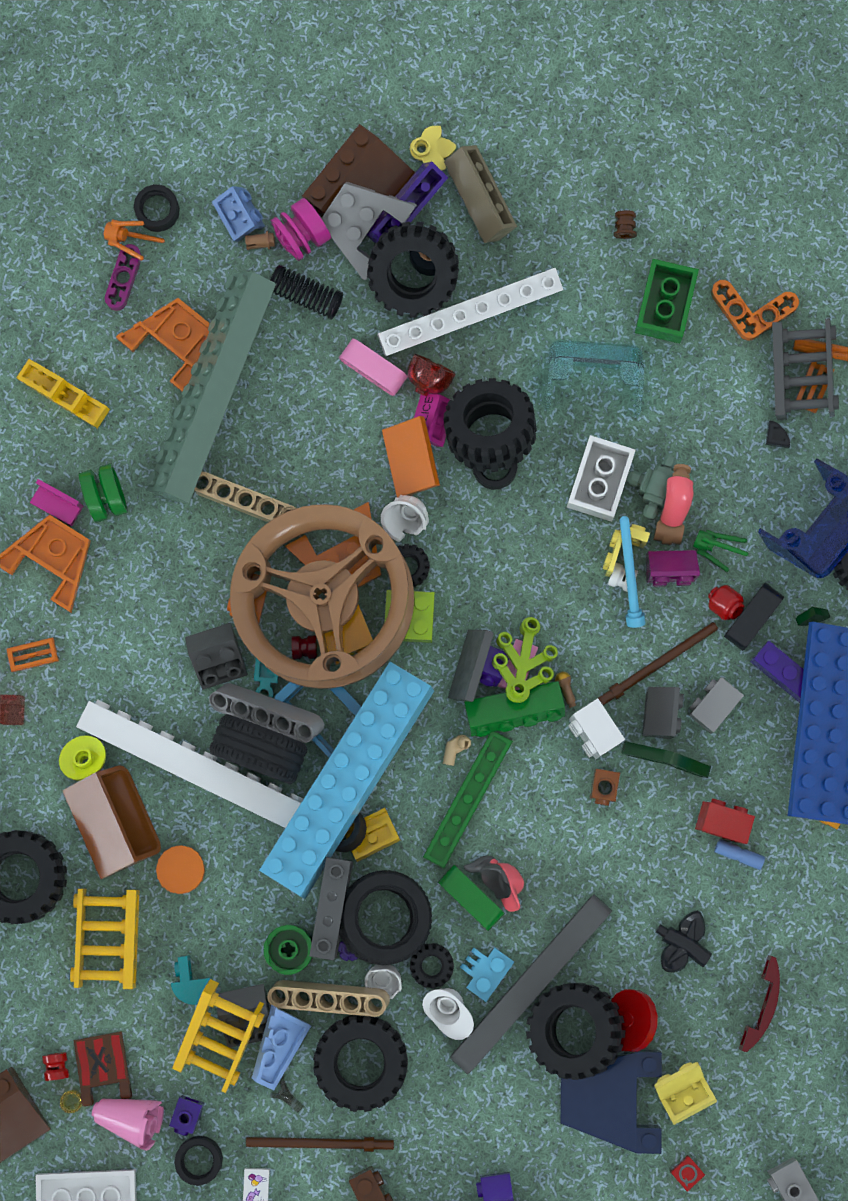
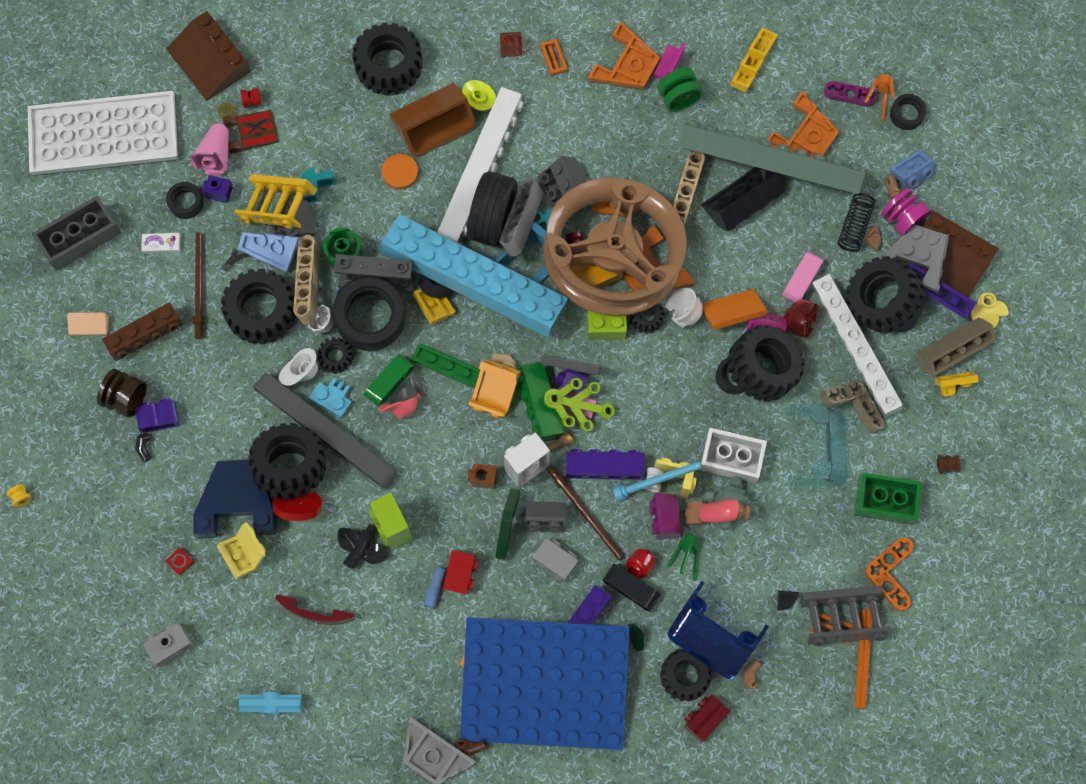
camera: 80 degrees right, 10 degrees down
(126, 951) = (351, 139): yellow fence -> none
(260, 430) = (743, 197): none -> black slope
(325, 274) = (873, 238): none -> medium nougat tile
(495, 763) = (494, 388): none -> light orange panel
(520, 194) = (948, 382): none -> yellow hinge
(537, 321) = (873, 422): none -> dark tan beam
(600, 635) = (605, 464): none -> dark purple brick
(663, 903) = (390, 521): none -> lime brick

